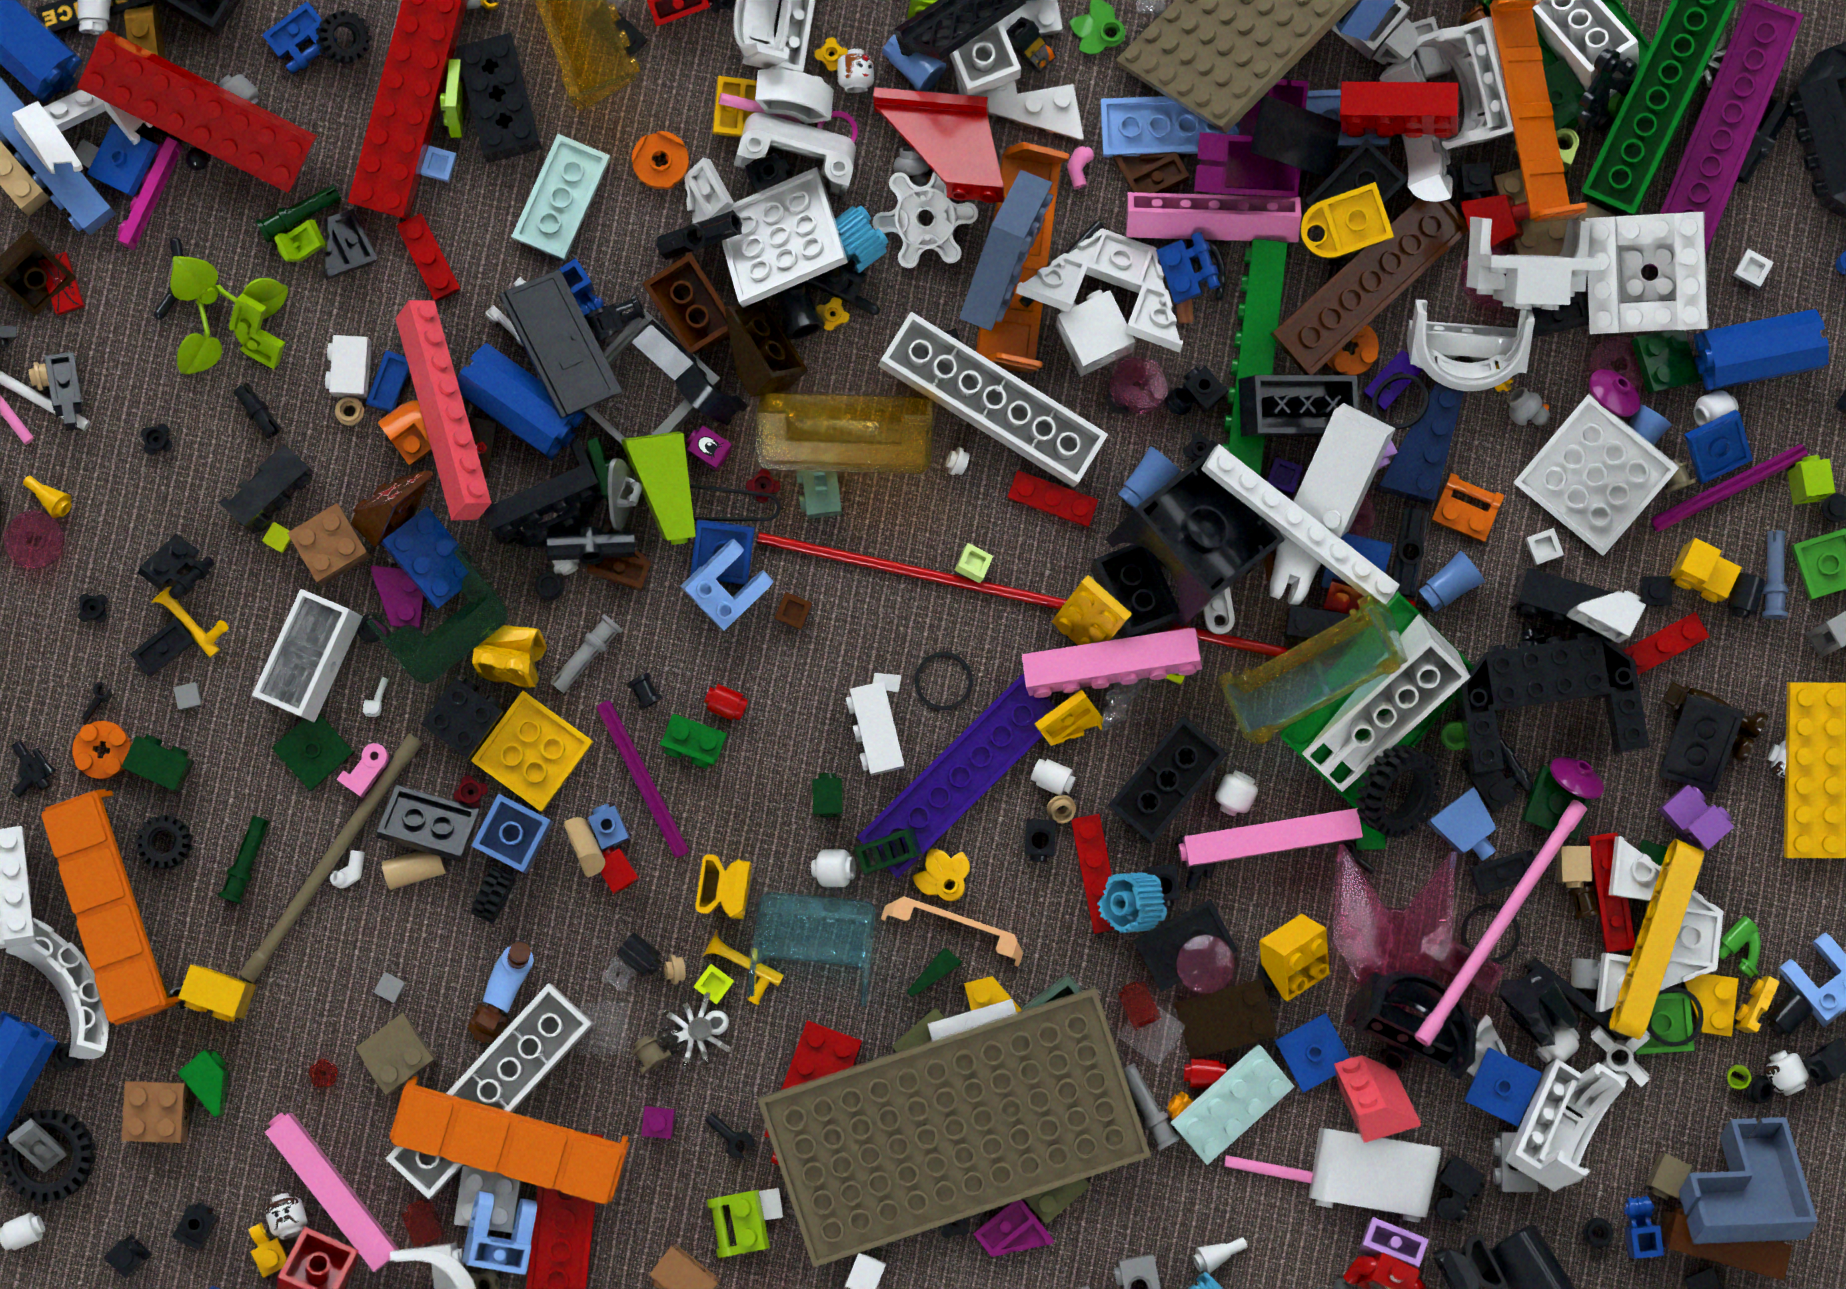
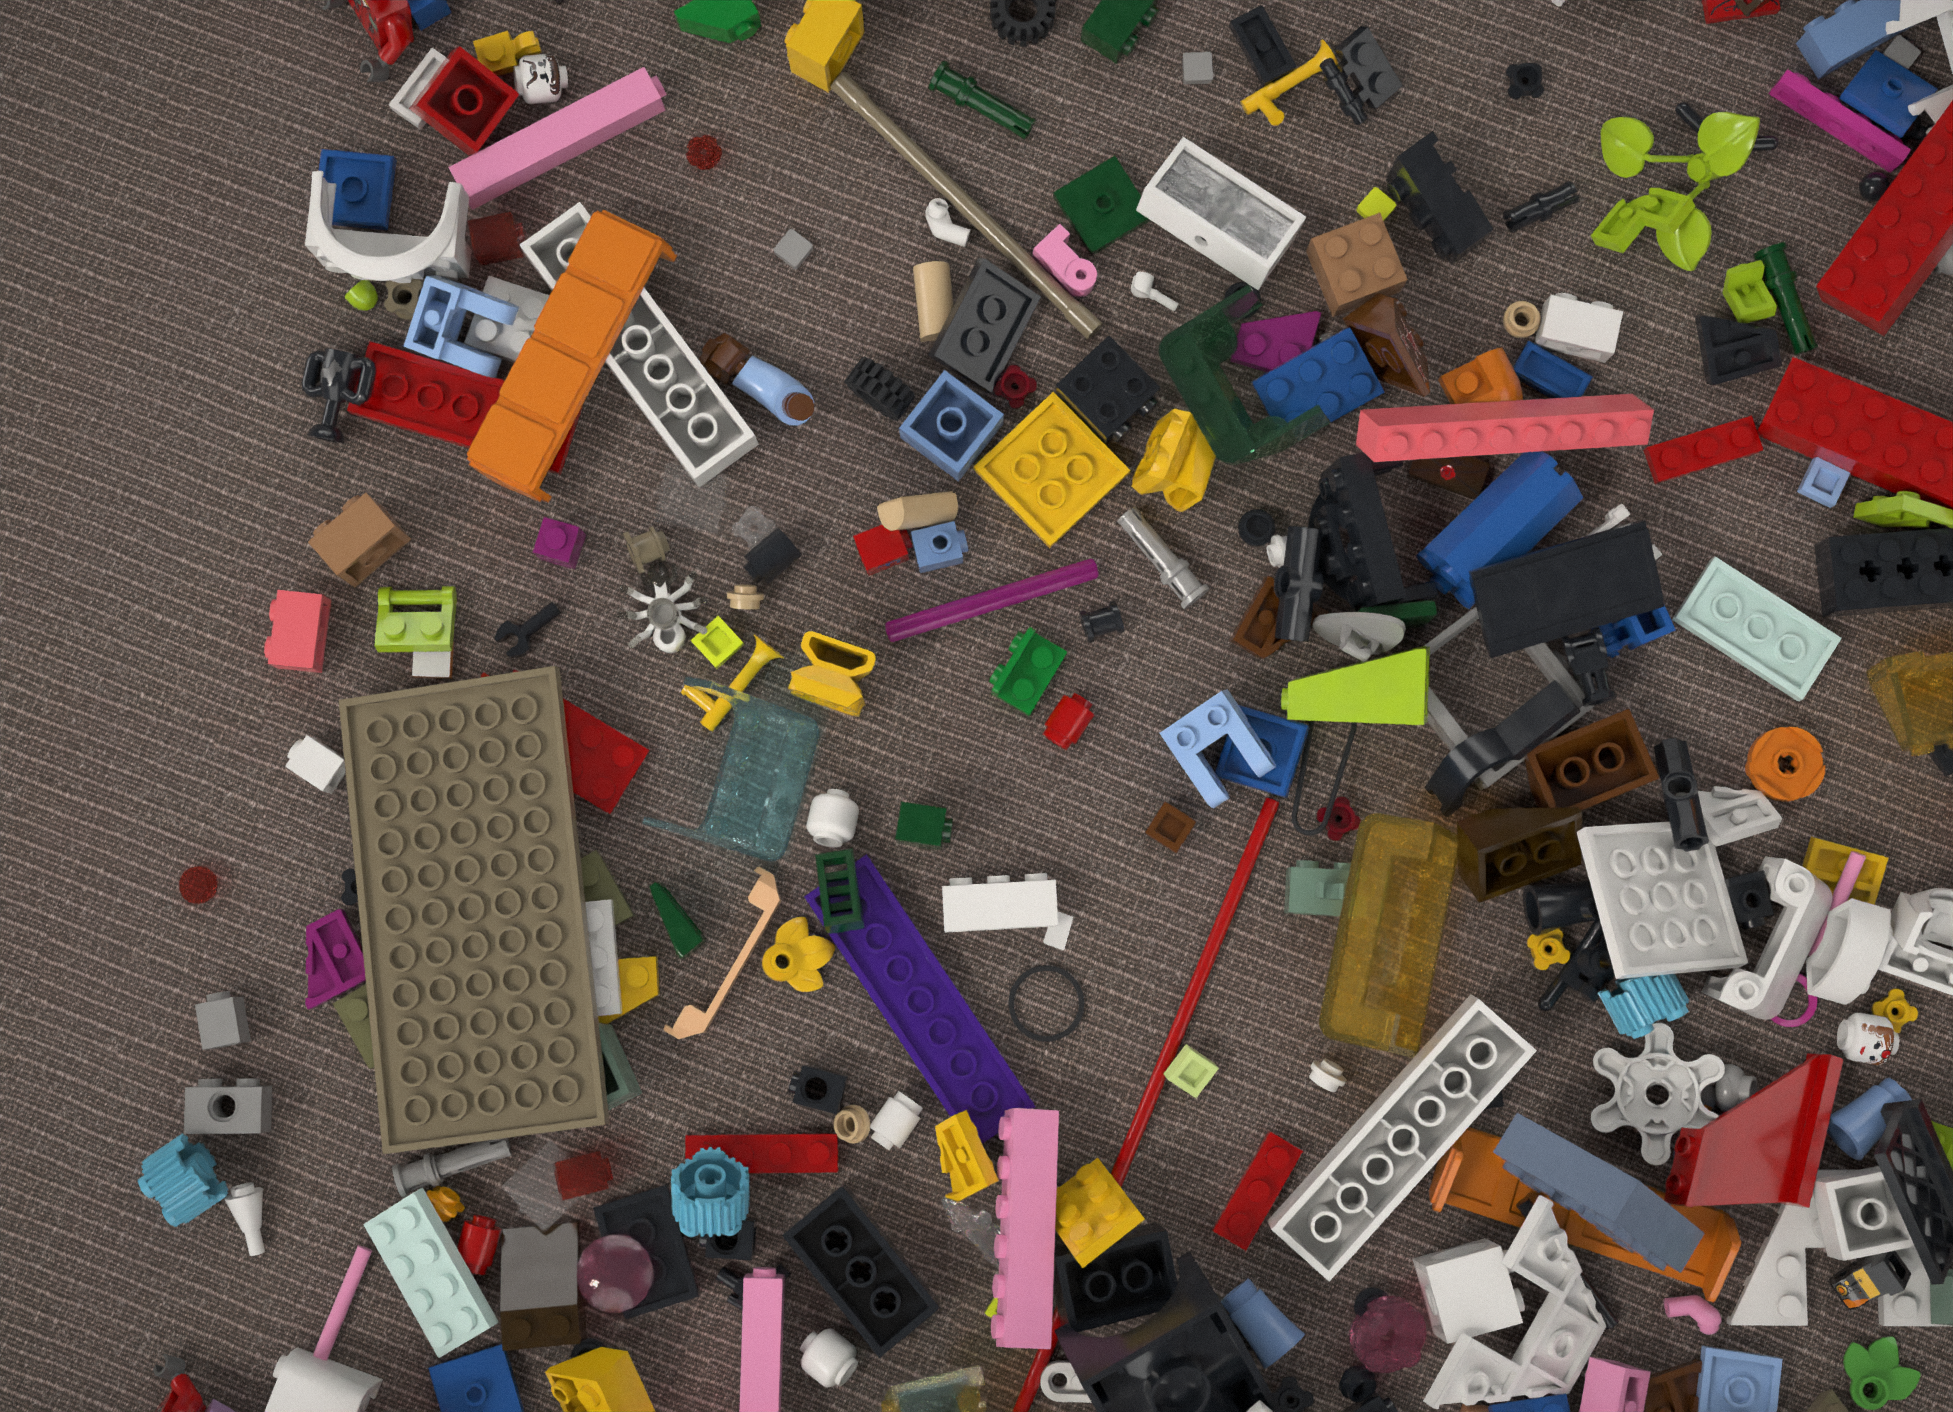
camera: 100 degrees right, 0 degrees up
(395, 1054) = (708, 240): dark tan slope -> none
(708, 448) = (1399, 758): magenta brick -> none

